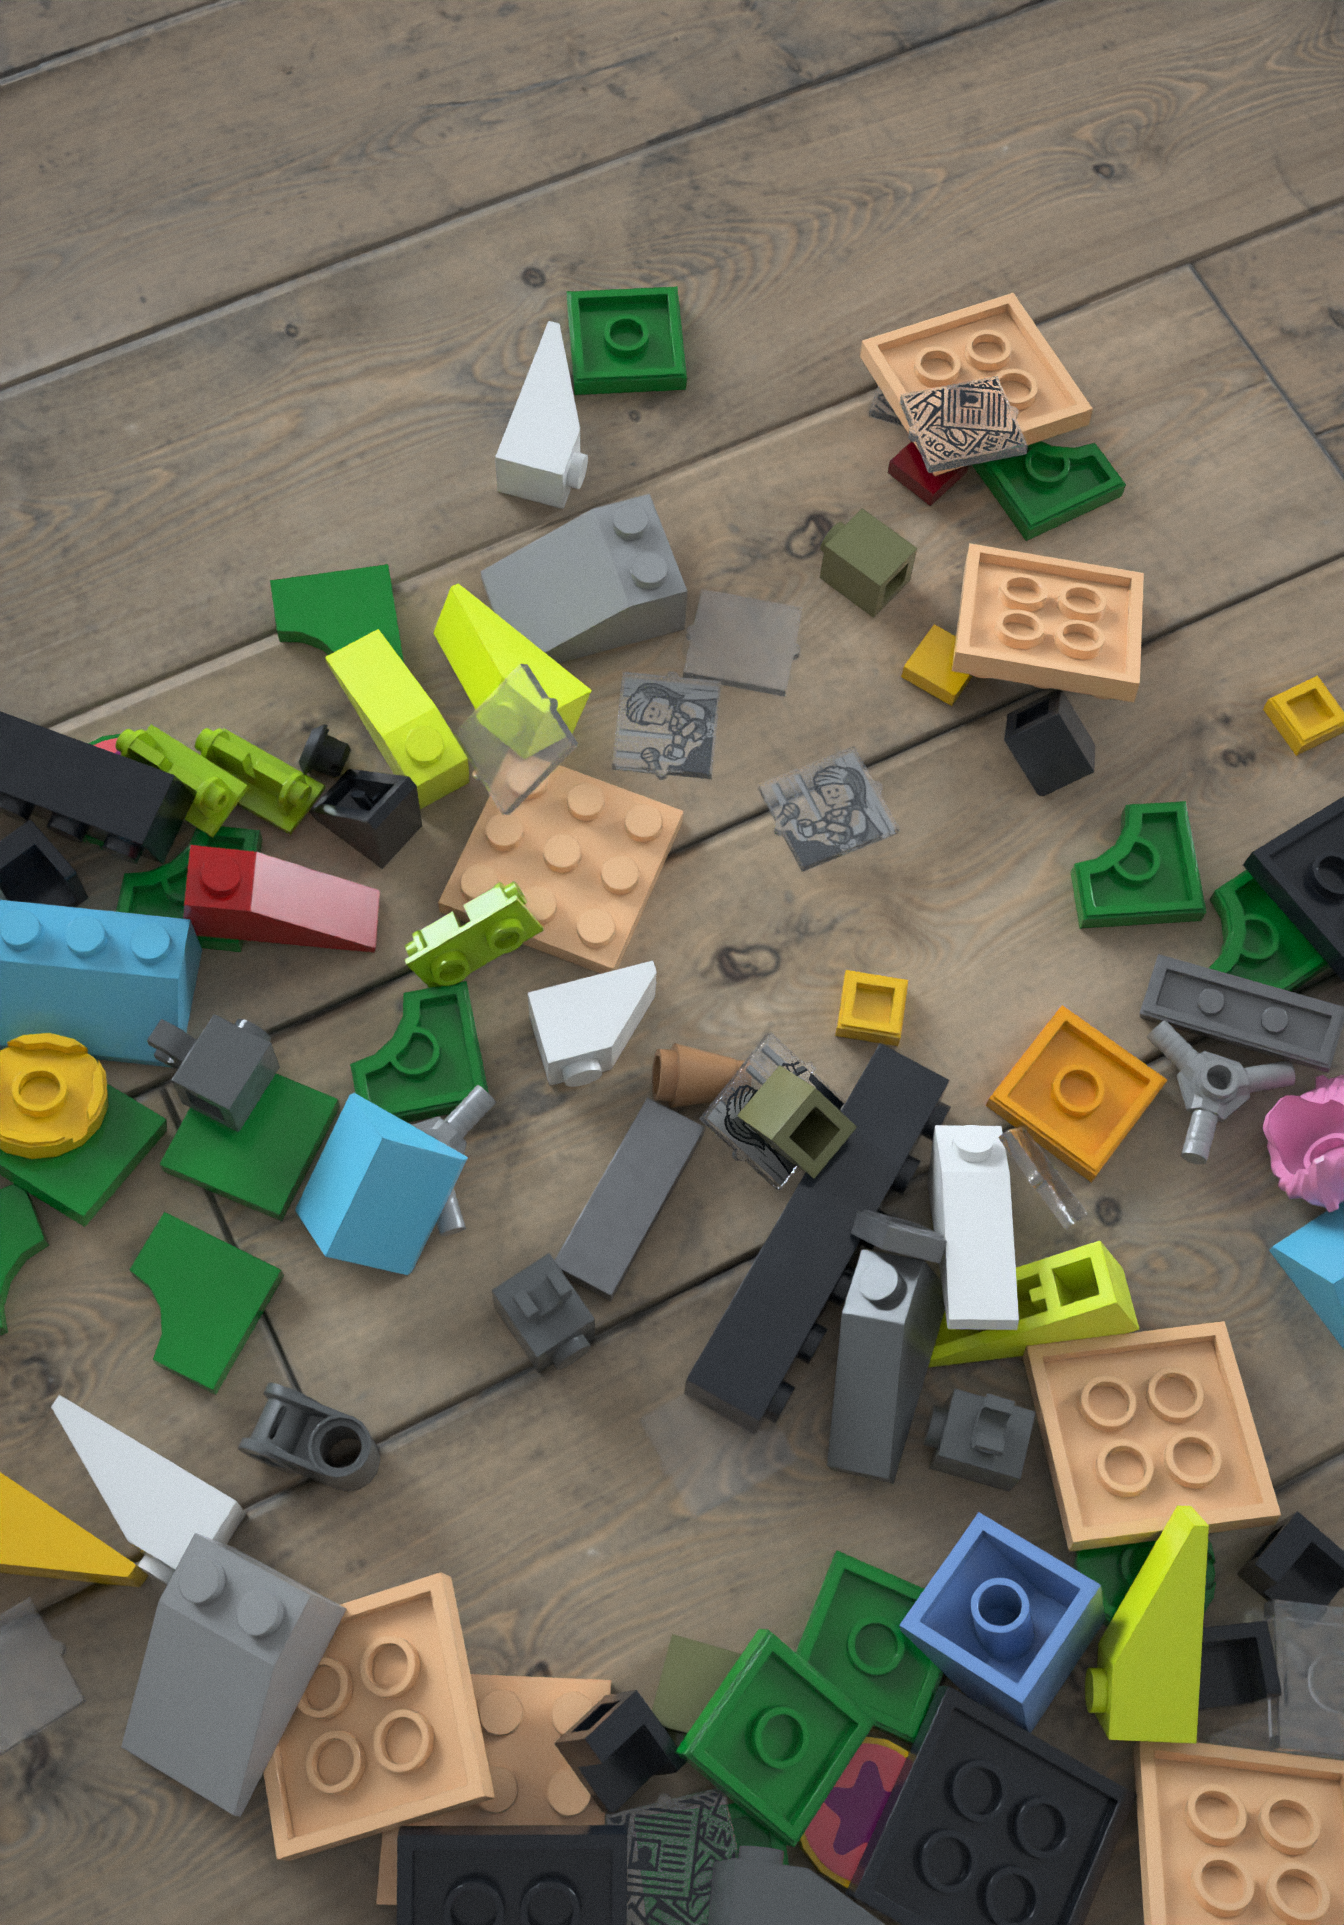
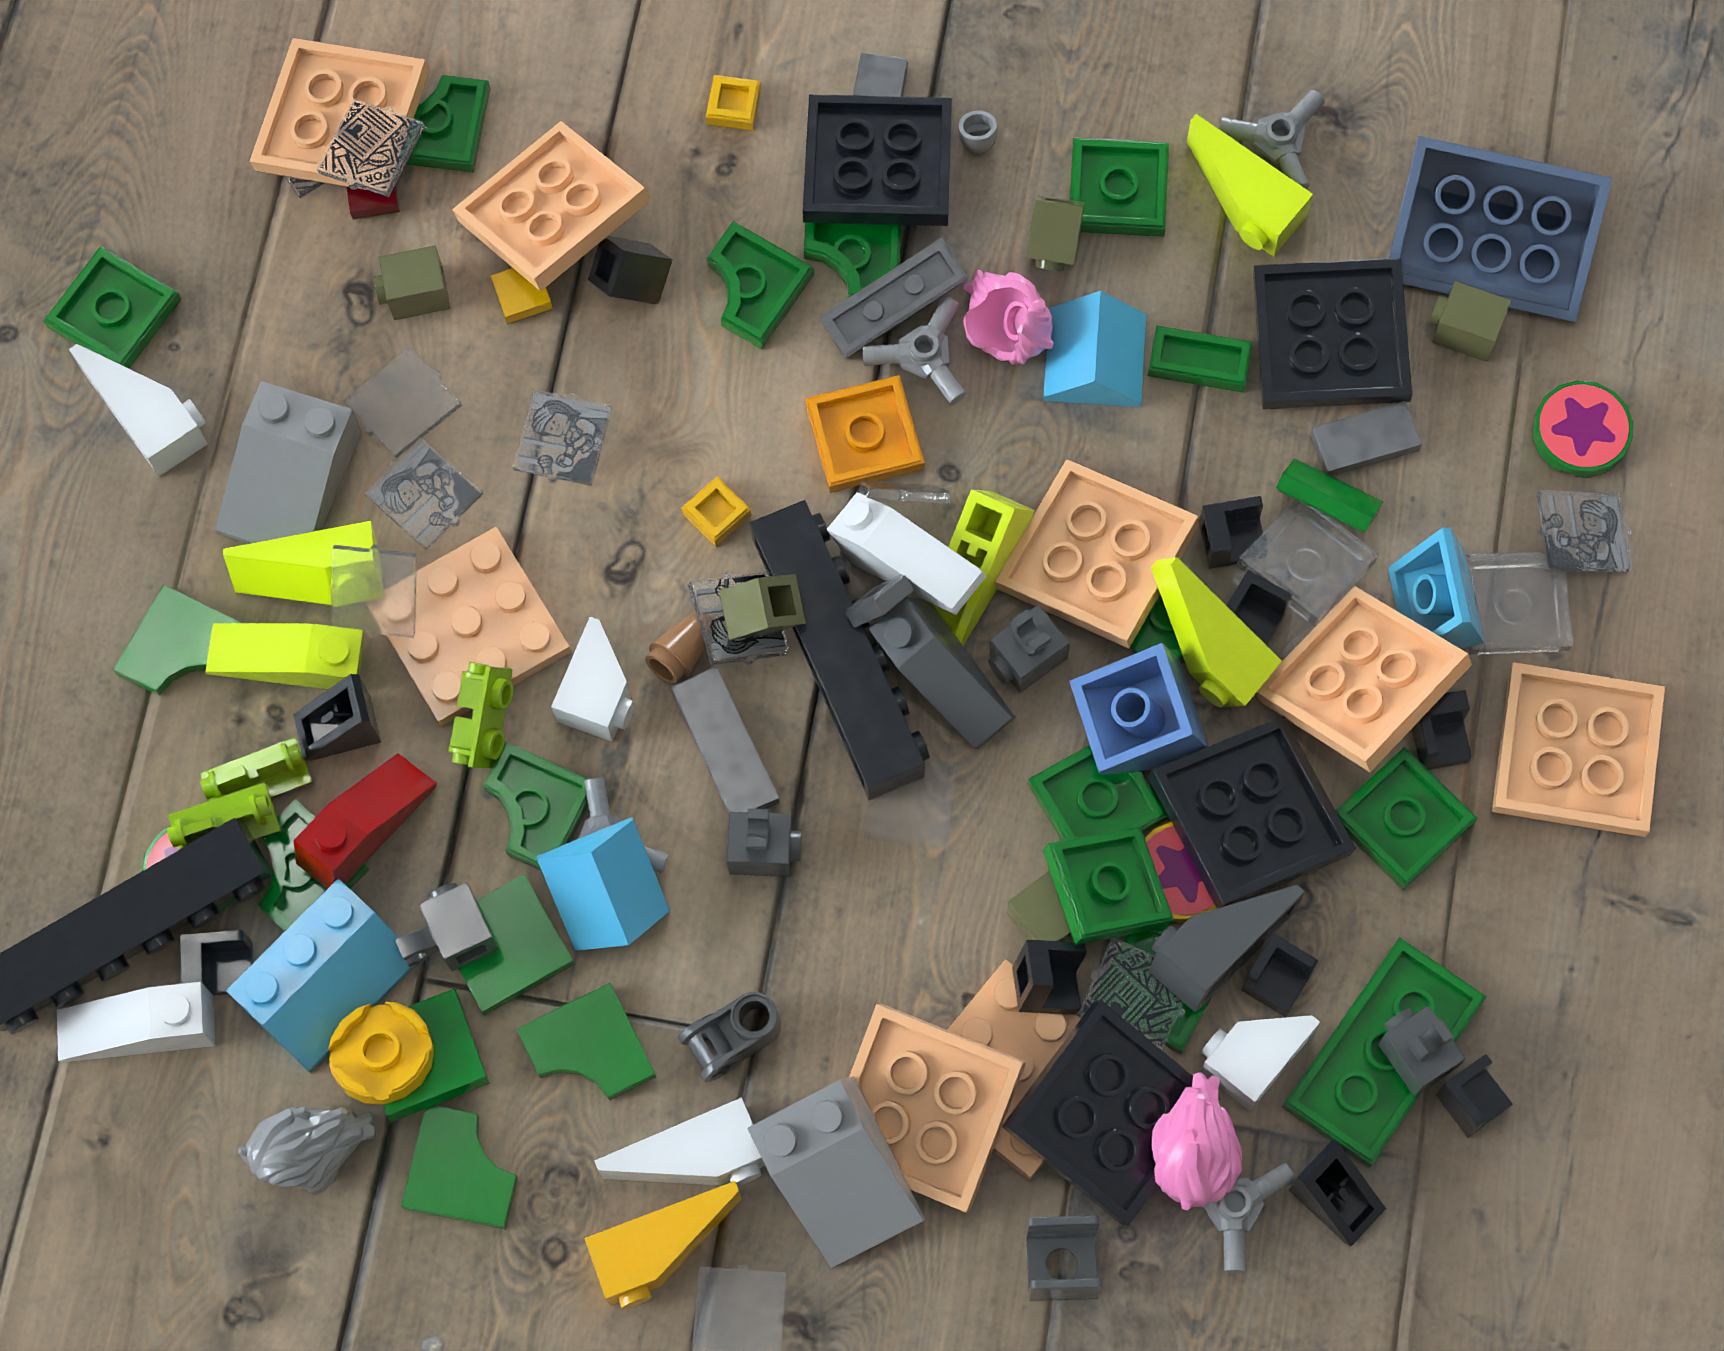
camera: 45 degrees left, 5 degrees up
(324, 753) = (272, 721): black piece -> none

